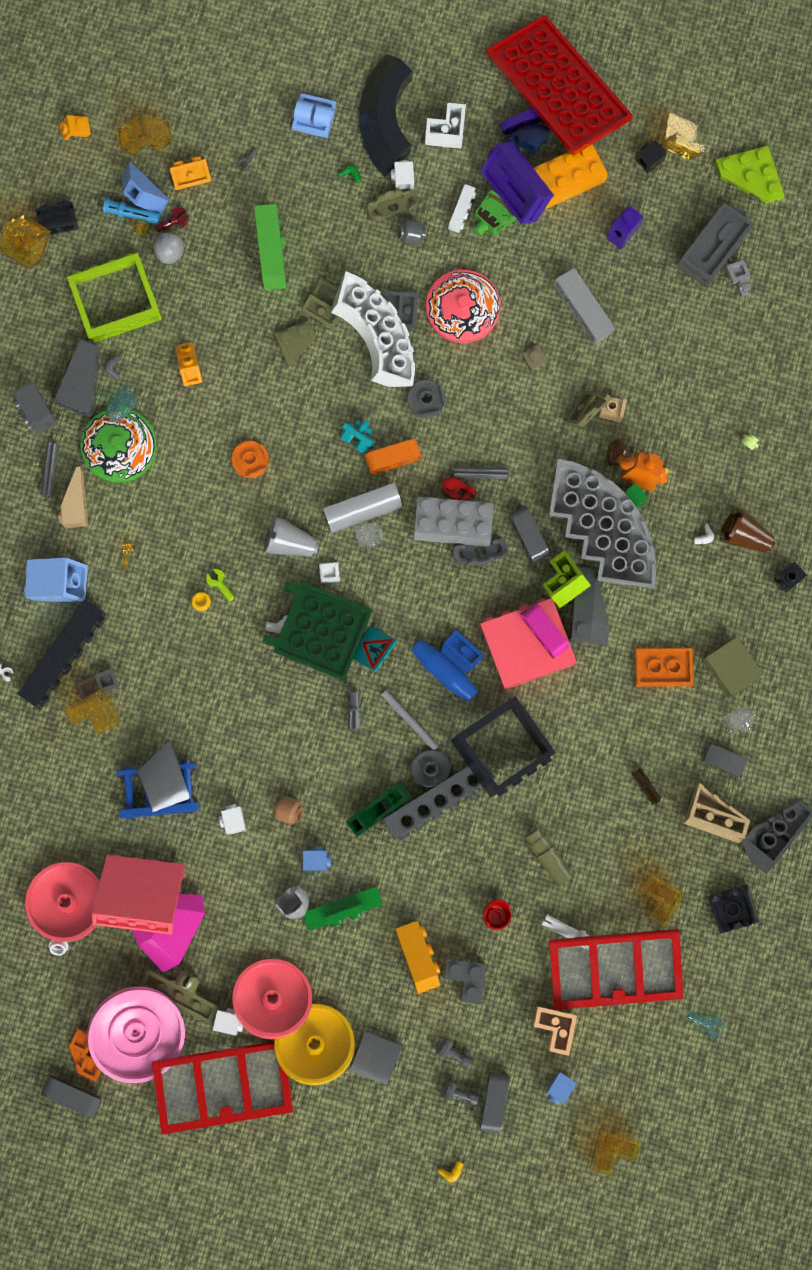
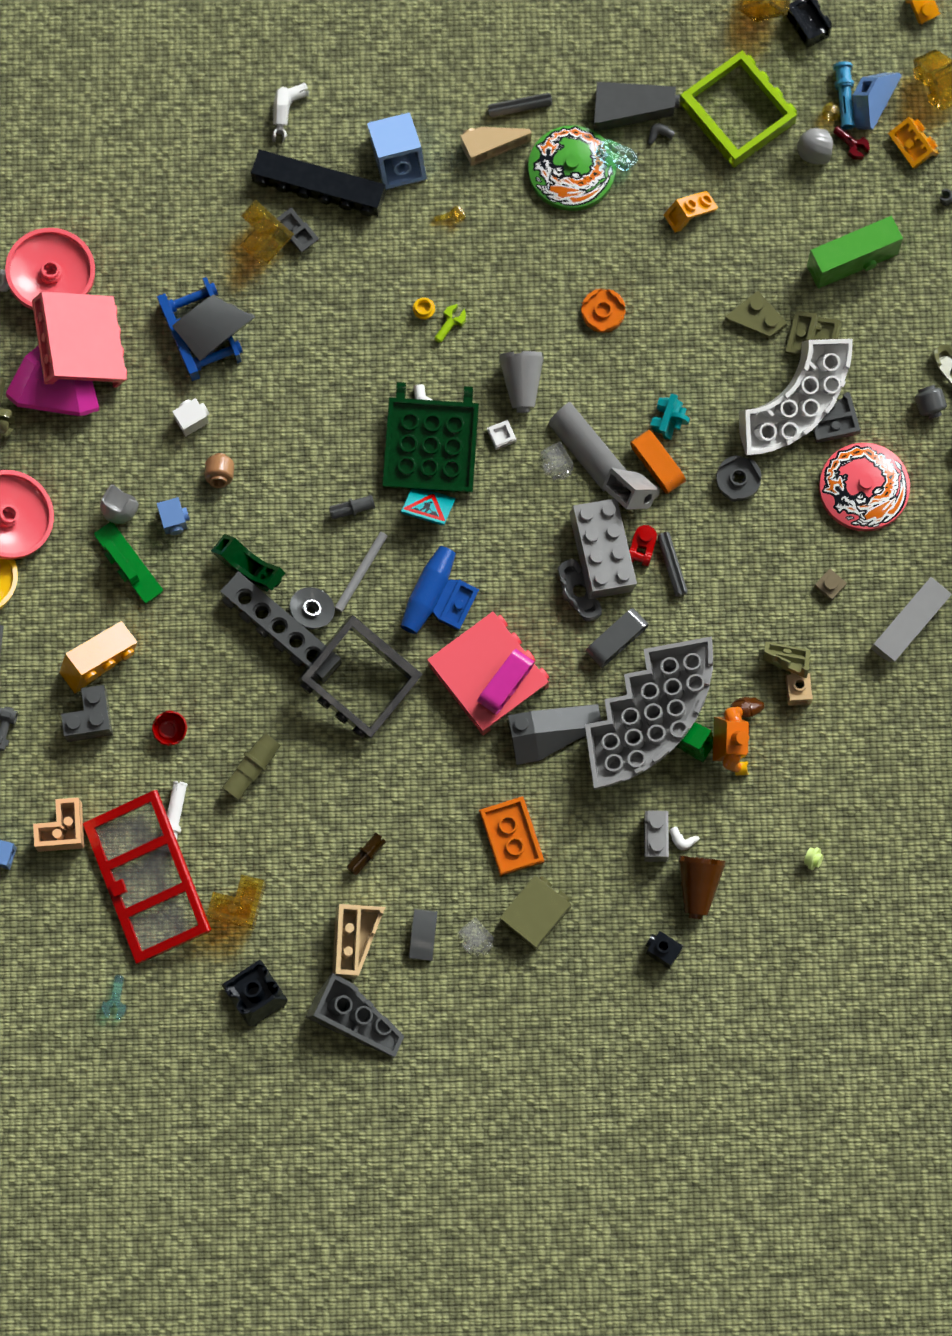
camera: 80 degrees right, 5 degrees down
(36, 411) = (580, 65): dark grey brick -> none
(412, 483) = (630, 489): none -> light grey torso
(568, 581) = (574, 693): lime brick -> none
(699, 554) = (656, 836): none -> light grey brick

